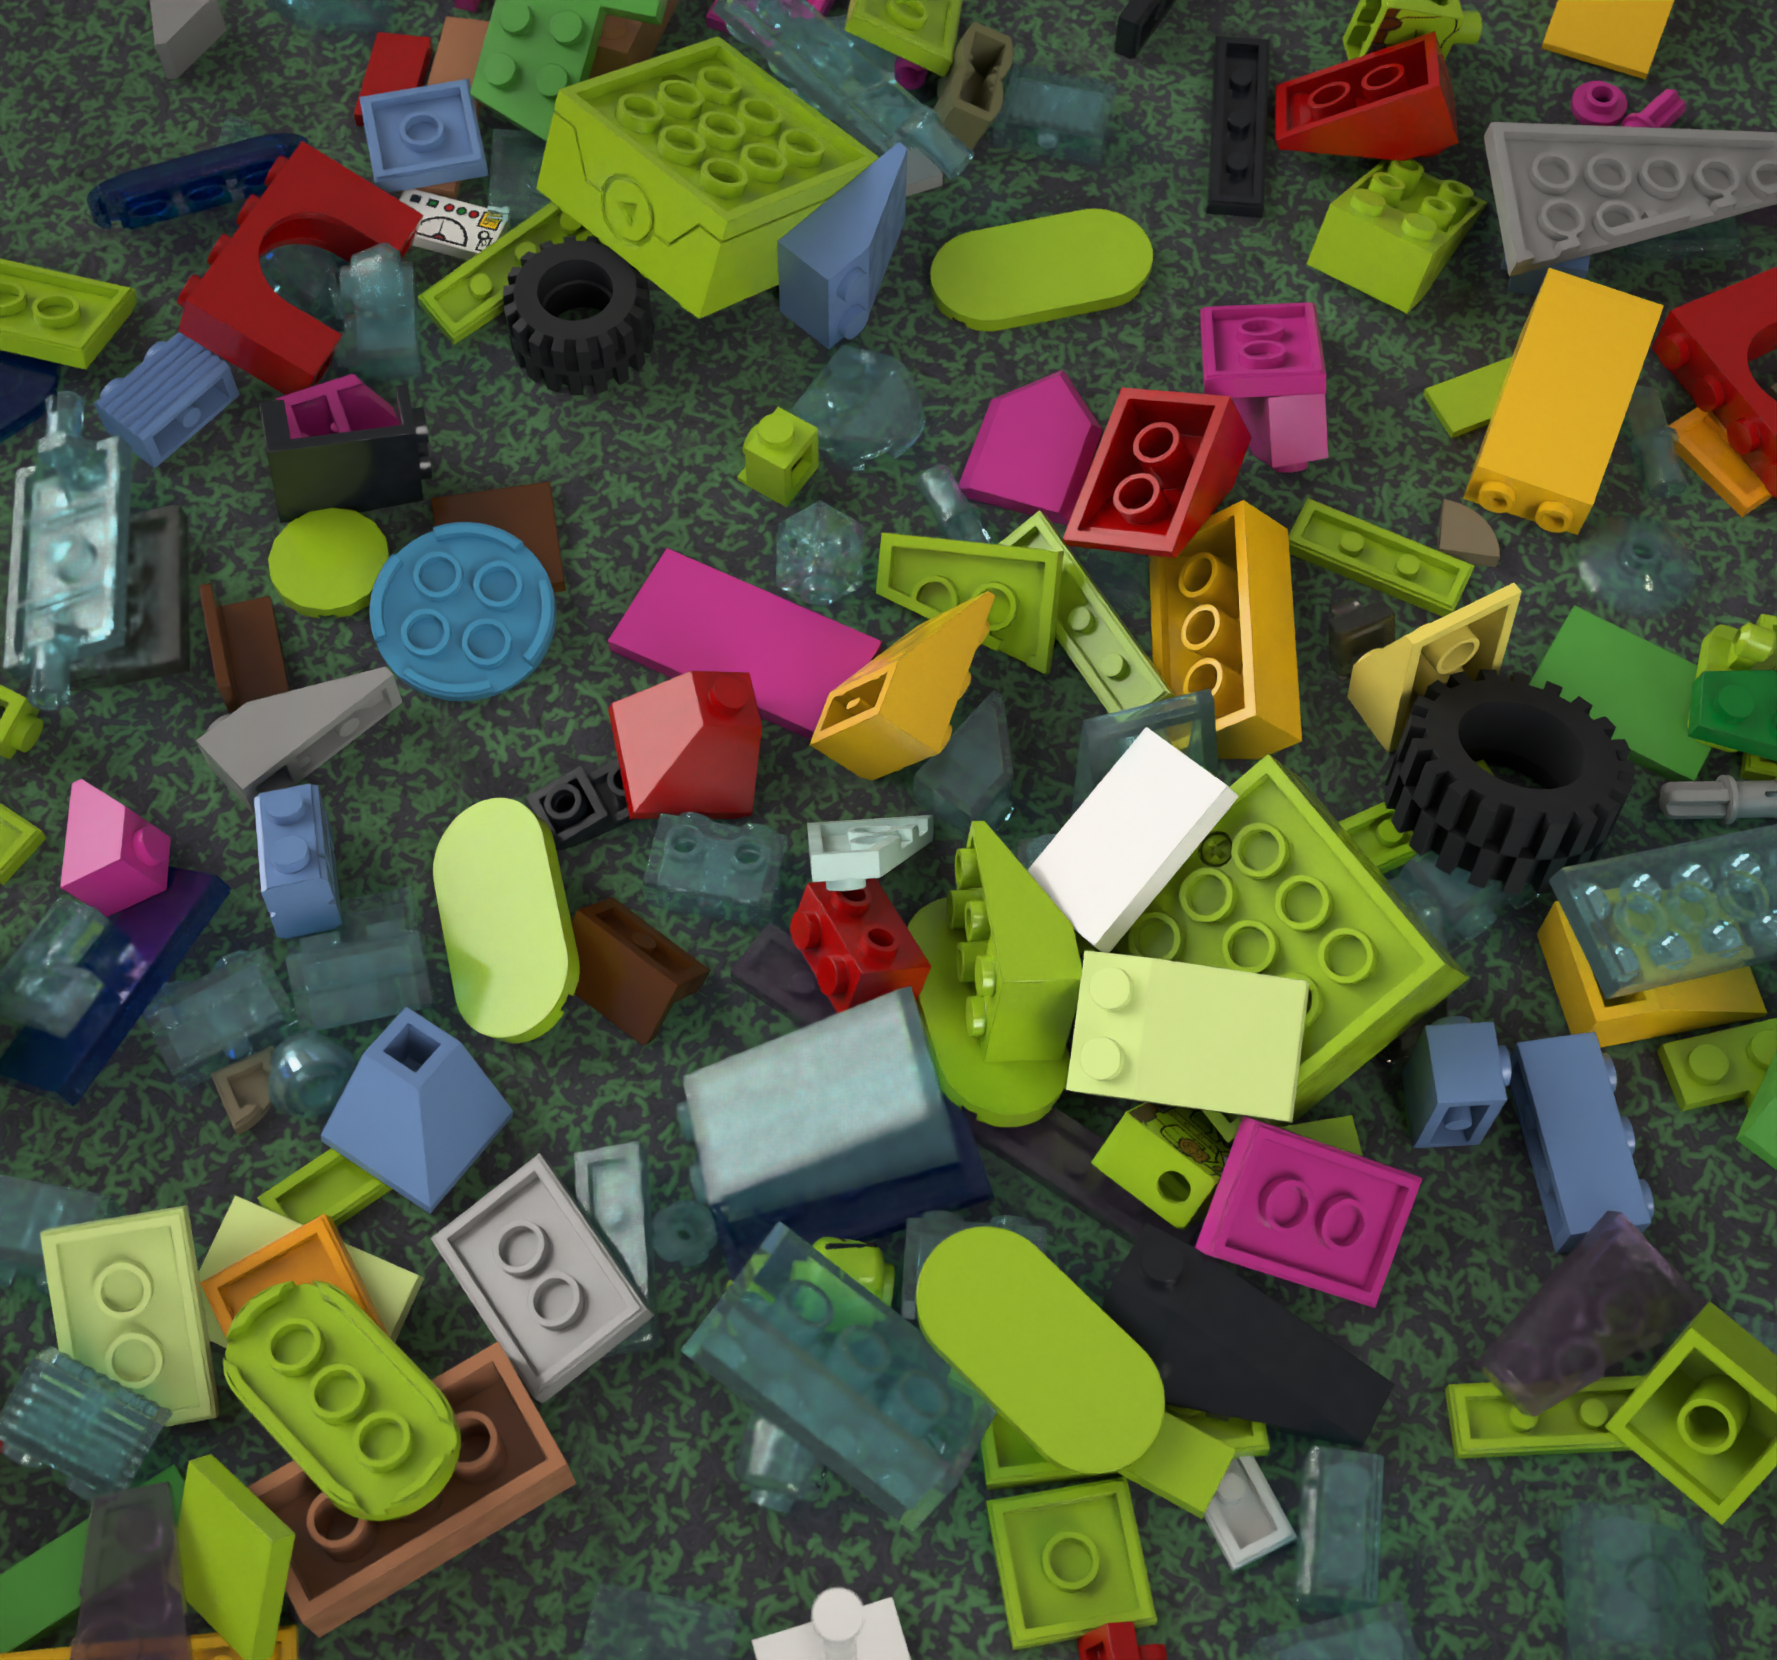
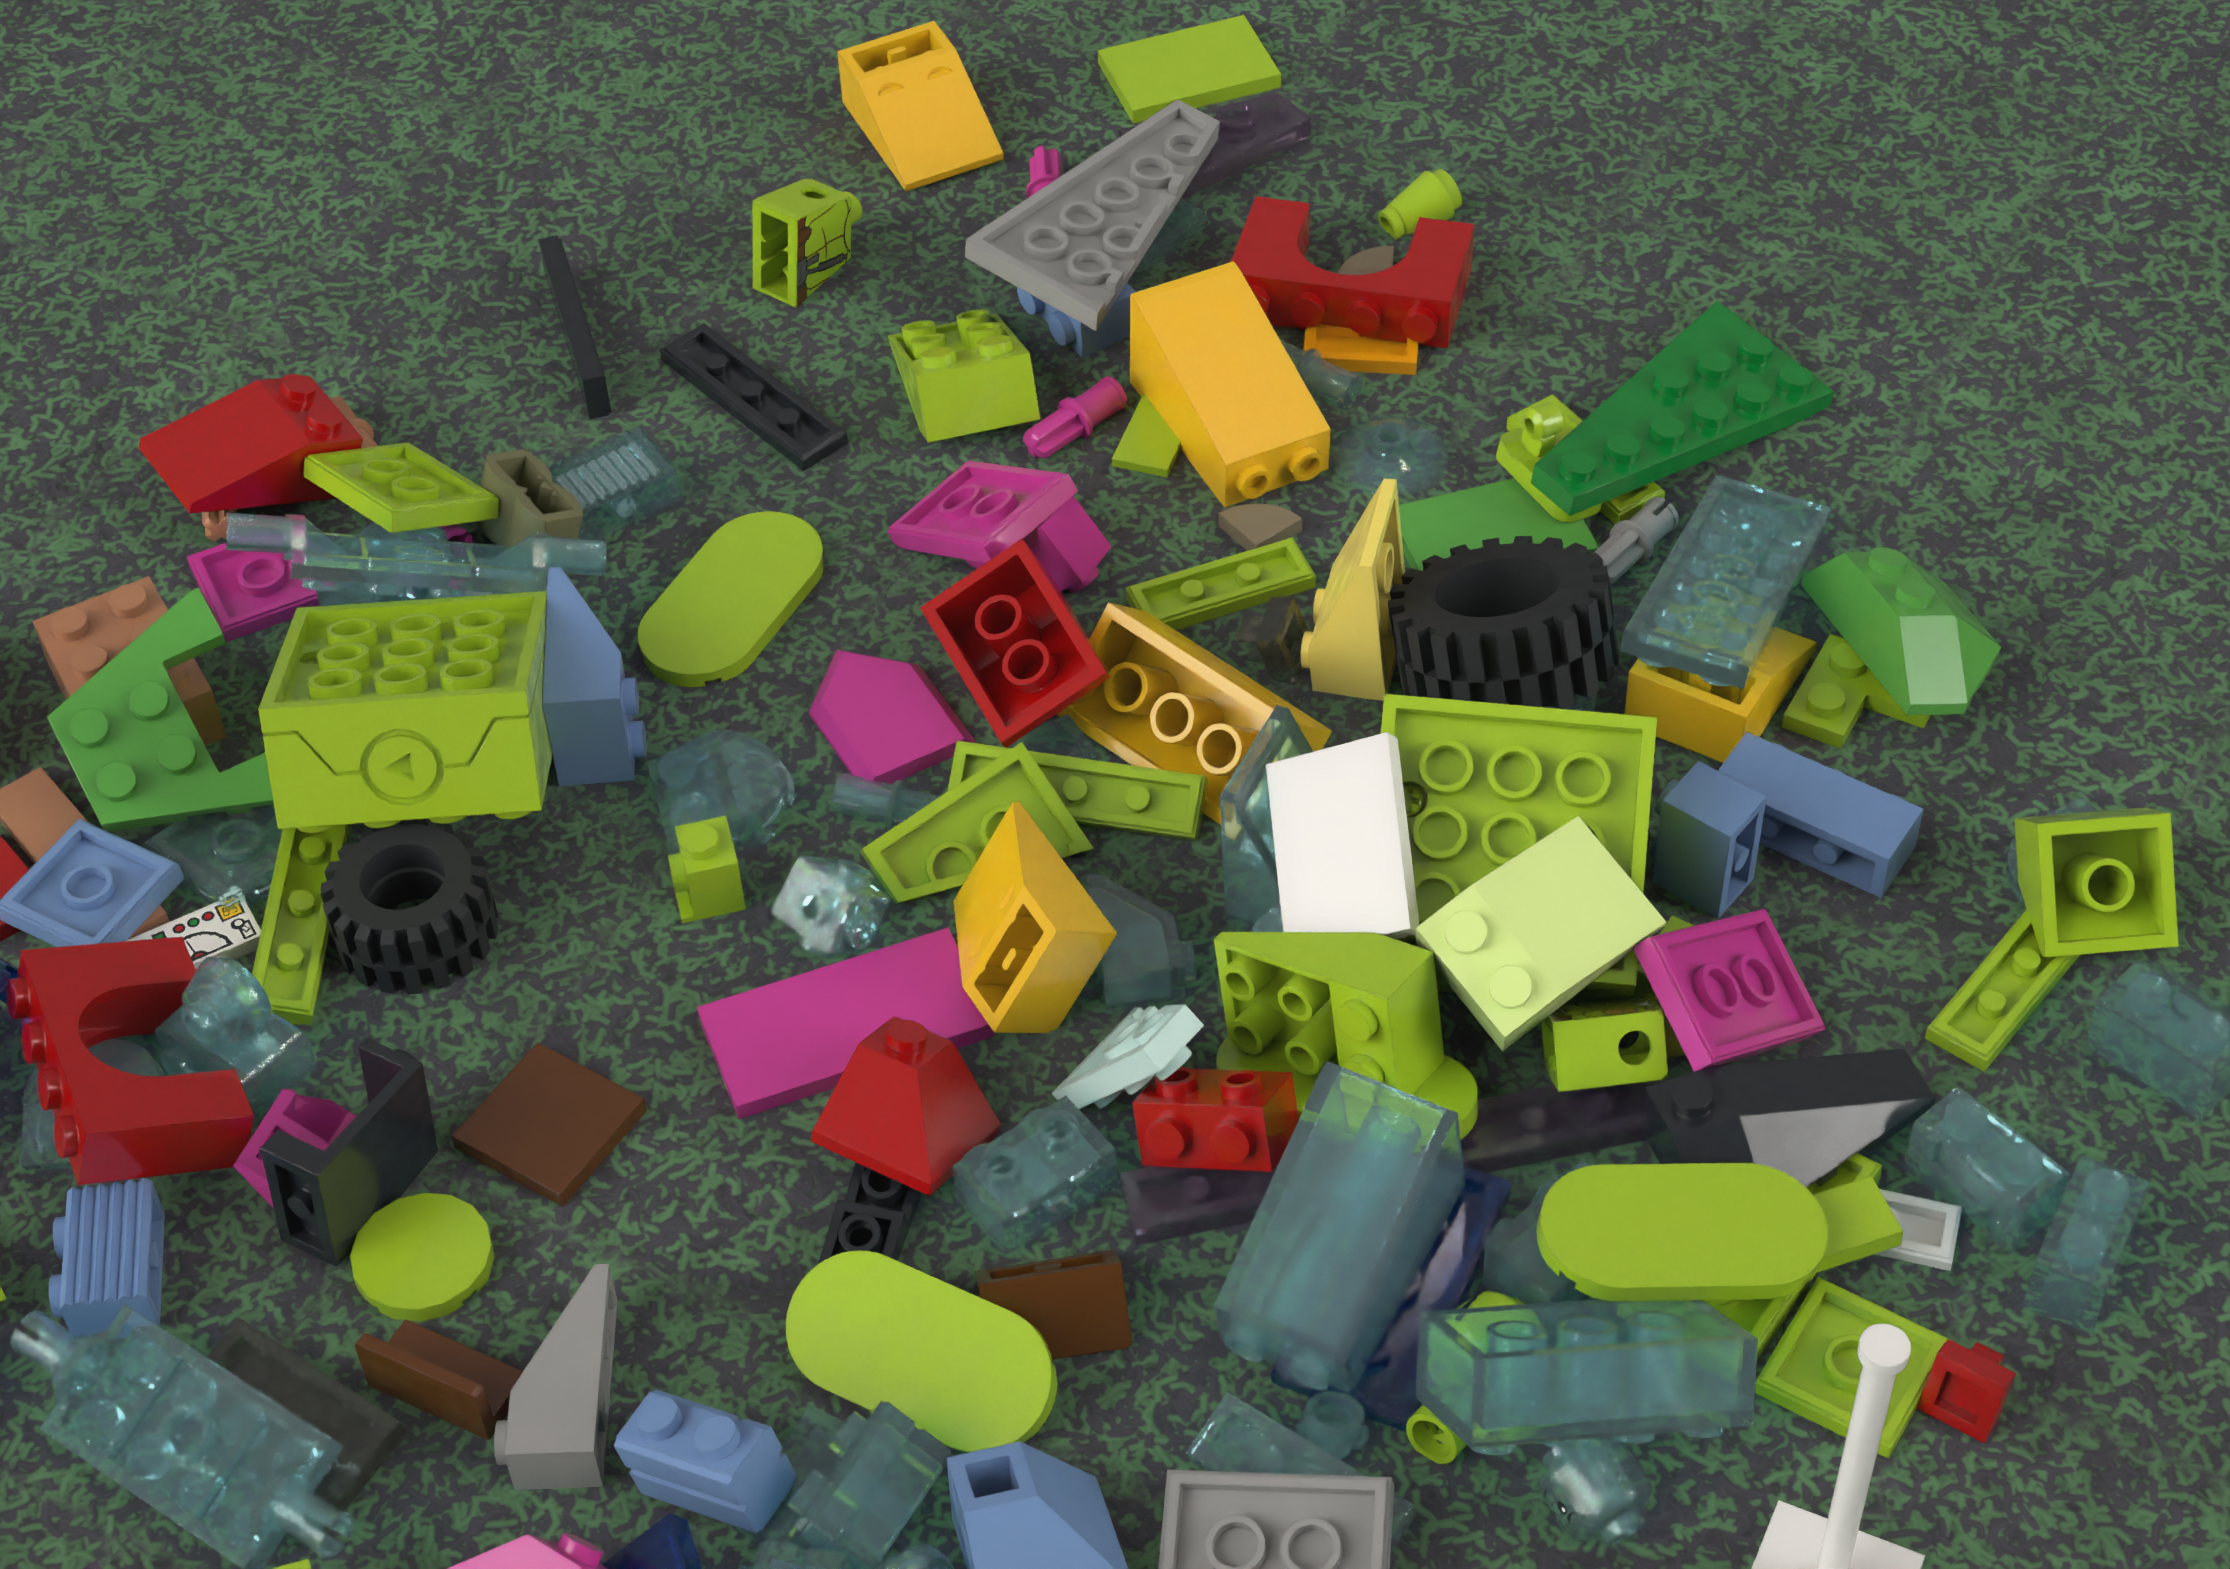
camera: 45 degrees left, 15 degrees down
(463, 612) = (591, 1186): dark azure tile -> none
(1372, 106) = (846, 302): red slope -> none
(1435, 334) = (1075, 418): none -> dark pink axle
(1592, 1312) = (1958, 898): wing -> none
(1606, 112) = (994, 195): dark pink plate -> none

